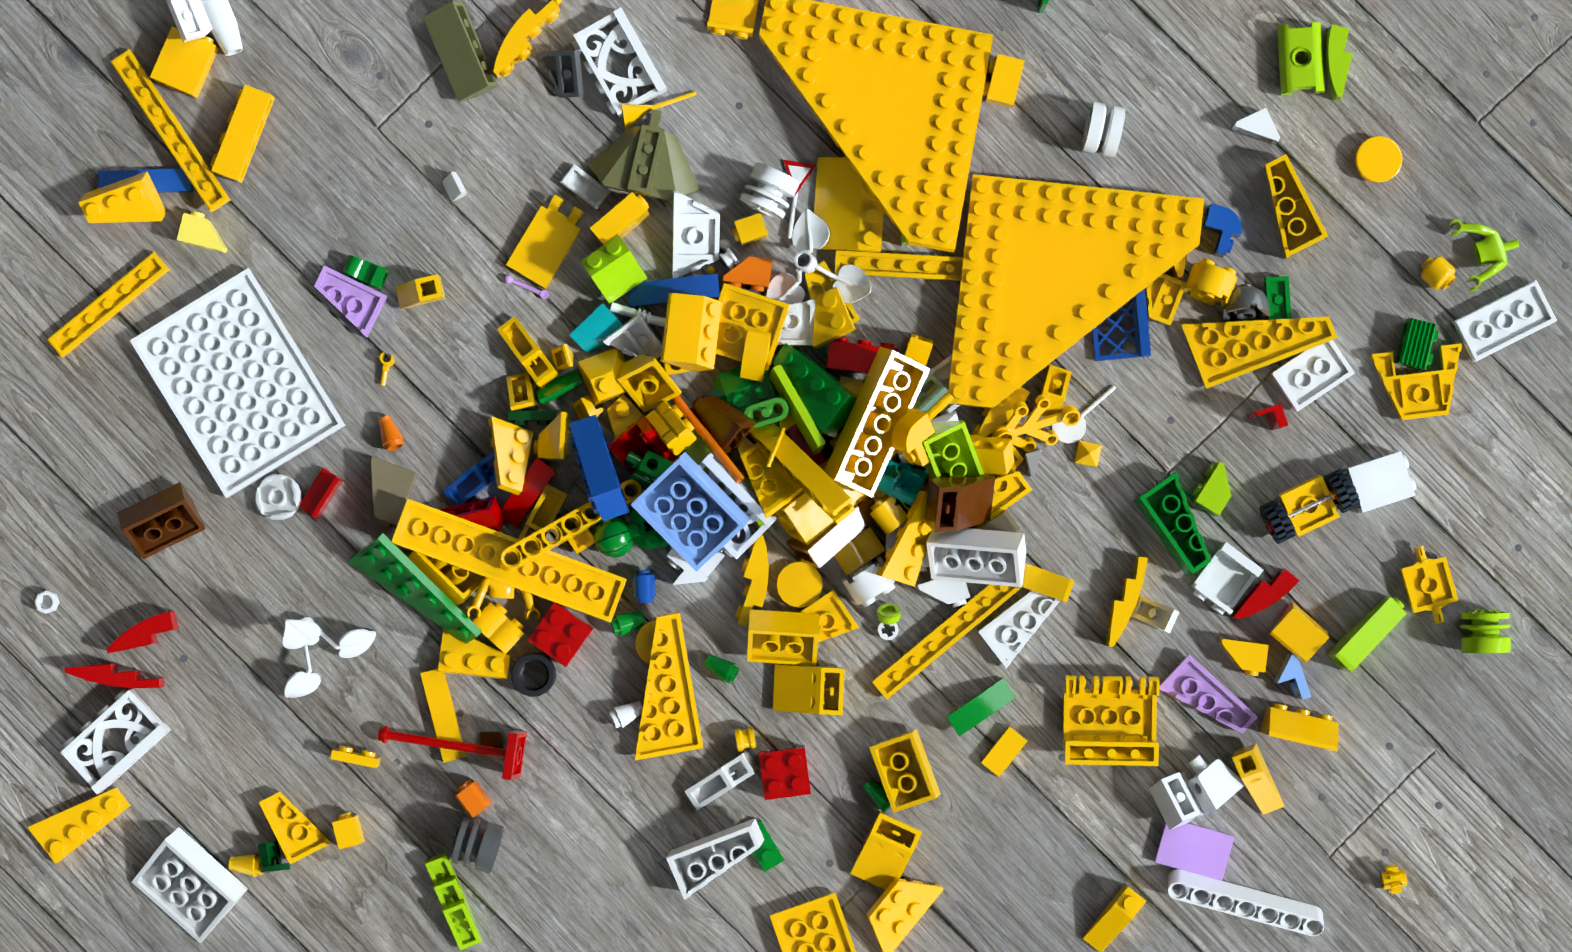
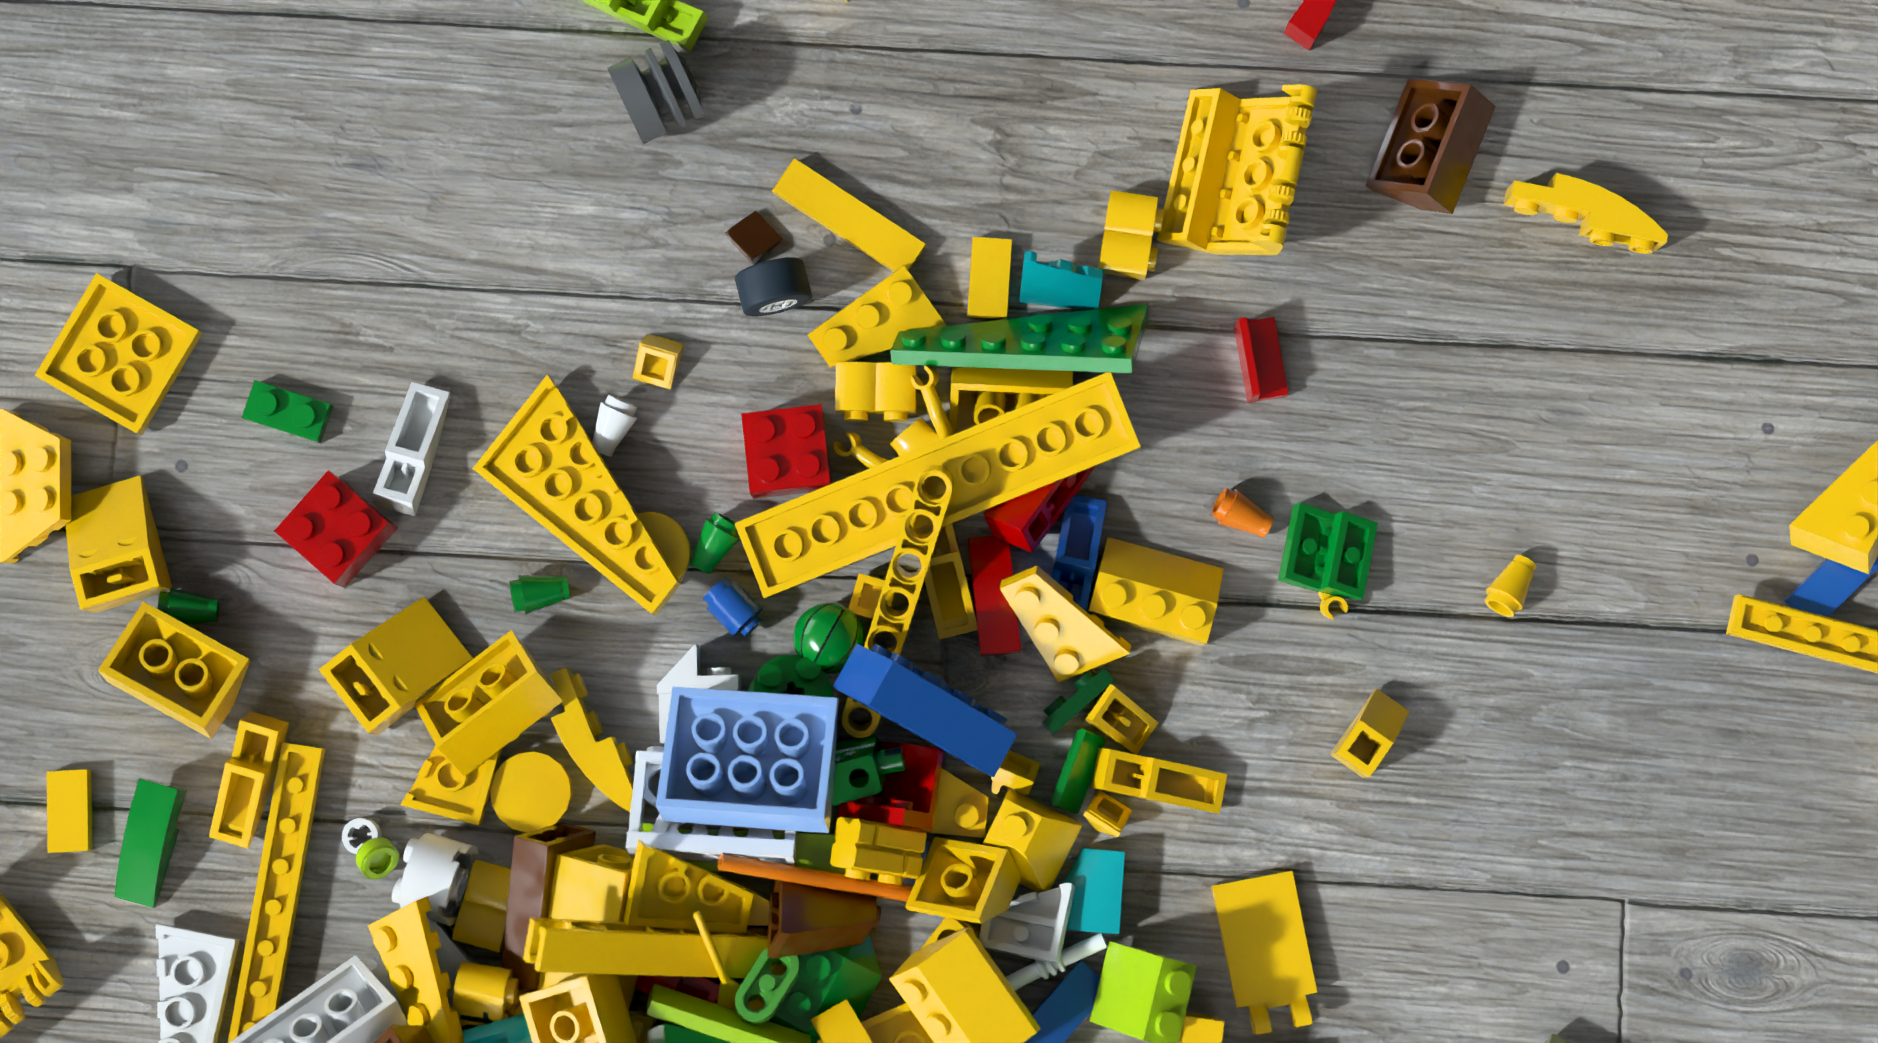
camera: 145 degrees right, 5 degrees down
(108, 304) = (1753, 359): yellow tile -> none
(114, 424) = (1603, 214): none -> yellow slope
(200, 232) = (1725, 555): light yellow slope -> none
(237, 383) = (1497, 406): white plate -> none
(242, 133) = (1792, 734): yellow brick -> none
(256, 583) = (1236, 171): none -> yellow slope
(278, 497) = (1310, 306): white tile -> none
(303, 300) = (1511, 587): none -> yellow cone
(306, 632) = (1114, 165): white plant -> none
(328, 598) = (1128, 235): none -> yellow brick
(353, 299) = (1451, 645): lavender wing -> none
(365, 758) = (899, 74): yellow plate -> none
(366, 271) = (1465, 697): green leg -> none
(367, 384) = (1328, 551): none -> green slope
(377, 602) = (1060, 284): none -> teal slope
(390, 490) = (1174, 441): dark tan slope -> none
(405, 633) = (989, 278): none -> yellow tile
(454, 186) = (1453, 913): white slope -> none
(456, 433) = (1156, 591): none -> yellow slope
(472, 798) = (713, 143): orange brick -> none
(503, 711) = (773, 286): none -> black wheel
(512, 754) = (713, 241): red tile -> none
(533, 692) = (777, 339): black tyre -> none
(544, 294) = (1208, 876): lavender hinge -> none
(554, 439) = (1020, 694): yellow slope -> none
(582, 725) = (657, 361): none -> yellow slope
(711, 856) = (335, 342): white wedge -> none
(745, 739) = (426, 528): yellow wheel -> none
(915, 697) = (248, 779): none -> yellow slope
(946, 591) = (322, 955): white slope -> none

